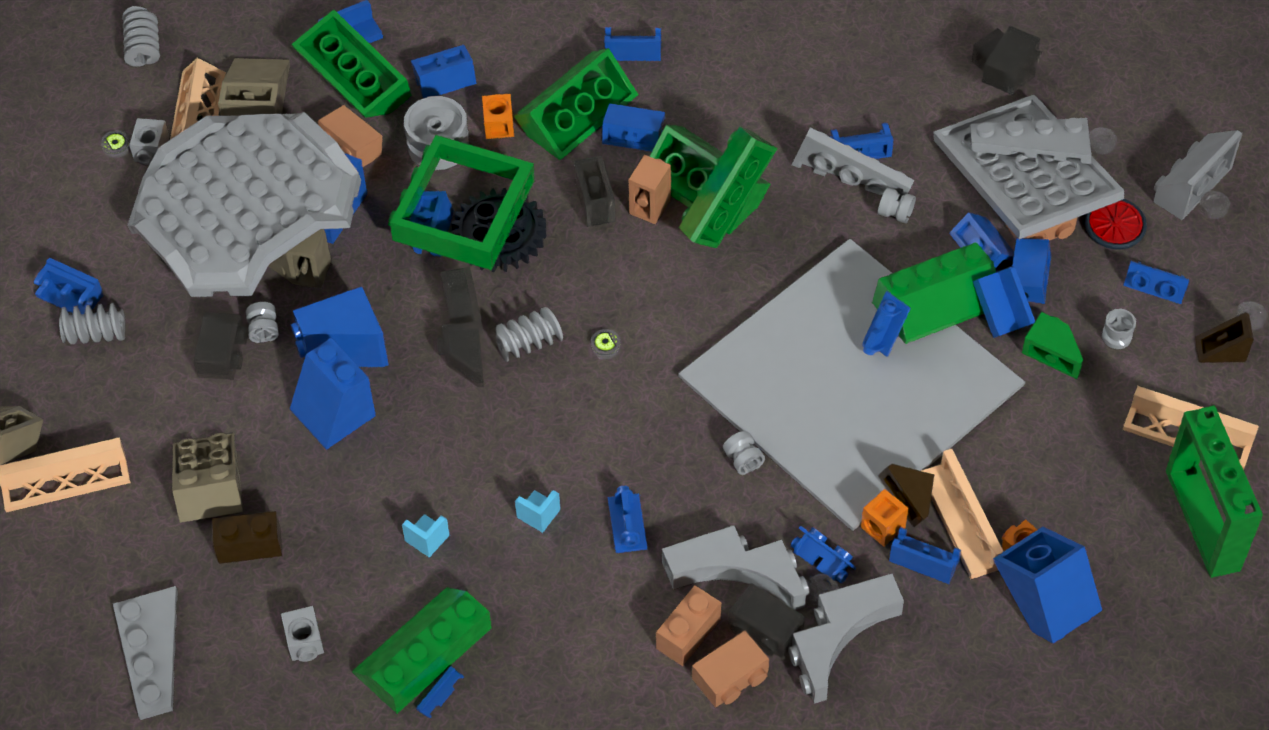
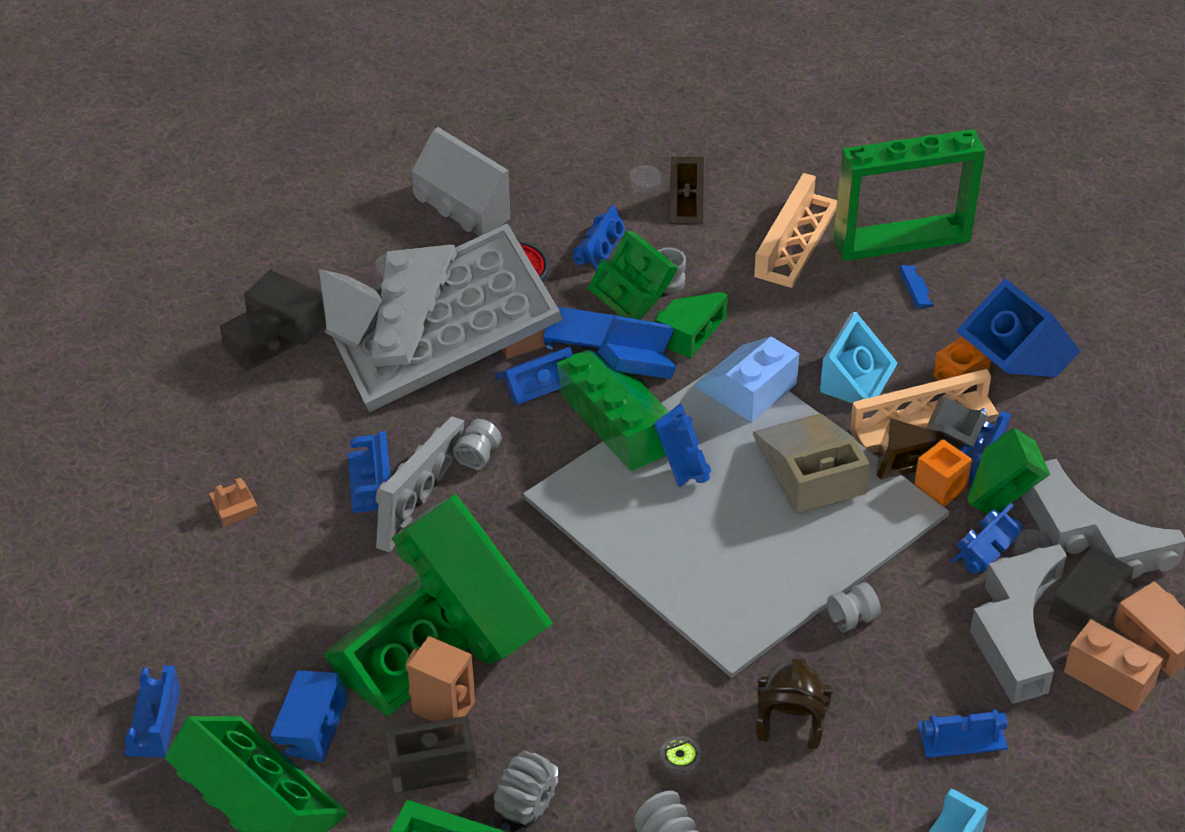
camera: 90 degrees left, 10 degrees down
(565, 245) = (526, 788): none -> light grey gear
(640, 400) = (793, 691): none -> dark brown helmet
(829, 66) = (233, 502): none -> nougat tile
(883, 557) = (1007, 471): none -> green slope
(888, 419) = (814, 461): none -> dark tan slope
(943, 530) = (956, 422): none -> dark grey panel
(982, 383) = (752, 377): none -> light blue slope
(1015, 465) = (856, 363): none -> medium azure slope
(1022, 96) = (347, 306): none -> light grey slope
(1100, 299) = (632, 277): none -> green slope
(1137, 526) = (915, 286): none -> blue piece

